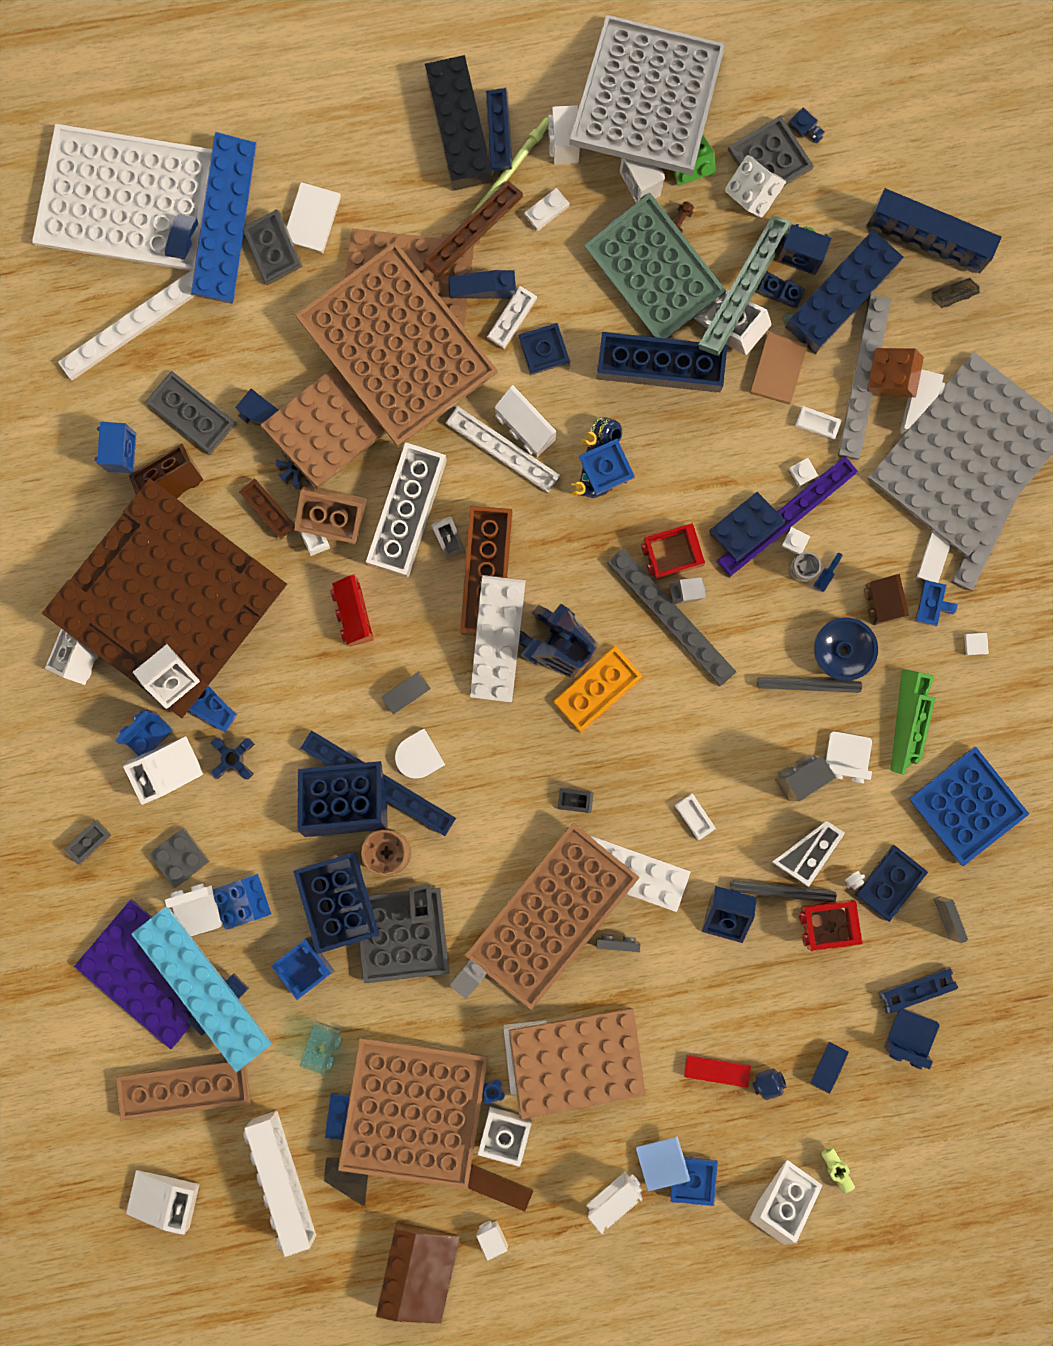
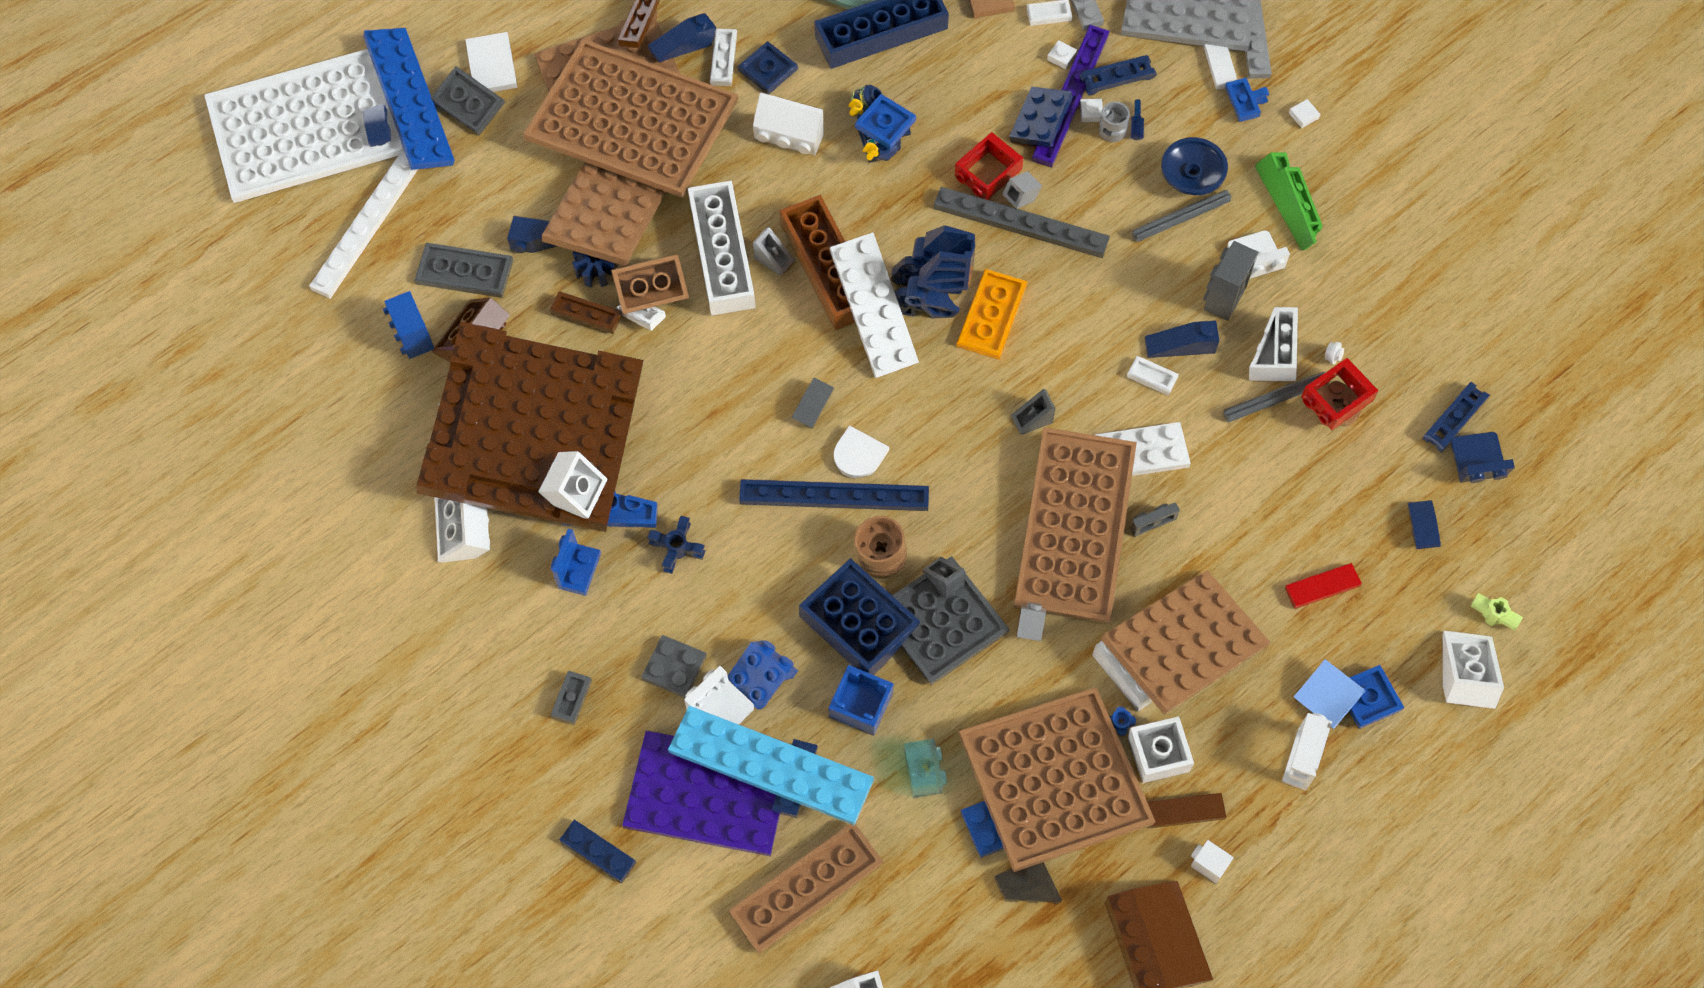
camera: 30 degrees left, 20 degrees down
(47, 974) = (597, 851): none -> dark blue plate
(163, 770) = (612, 586): white slope -> none
(280, 1183) = (962, 917): white brick -> none
(341, 799) = (808, 523): dark blue slope -> none
(351, 611) = (720, 354): red slope -> none
(502, 449) = (779, 162): white tile -> none
(729, 914) = (1241, 439): dark blue slope -> none
(736, 801) = (1184, 340): none -> dark blue slope
(769, 1084) = (1379, 567): dark blue head -> none
(838, 521) = (1118, 74): none -> dark blue plate
(886, 600) = (1203, 110): reddish brown slope -> none
(891, 883) = (1369, 340): dark blue tile -> none
(951, 919) = (1441, 335): dark grey tile -> none
(968, 806) = (1390, 242): blue plate -> none

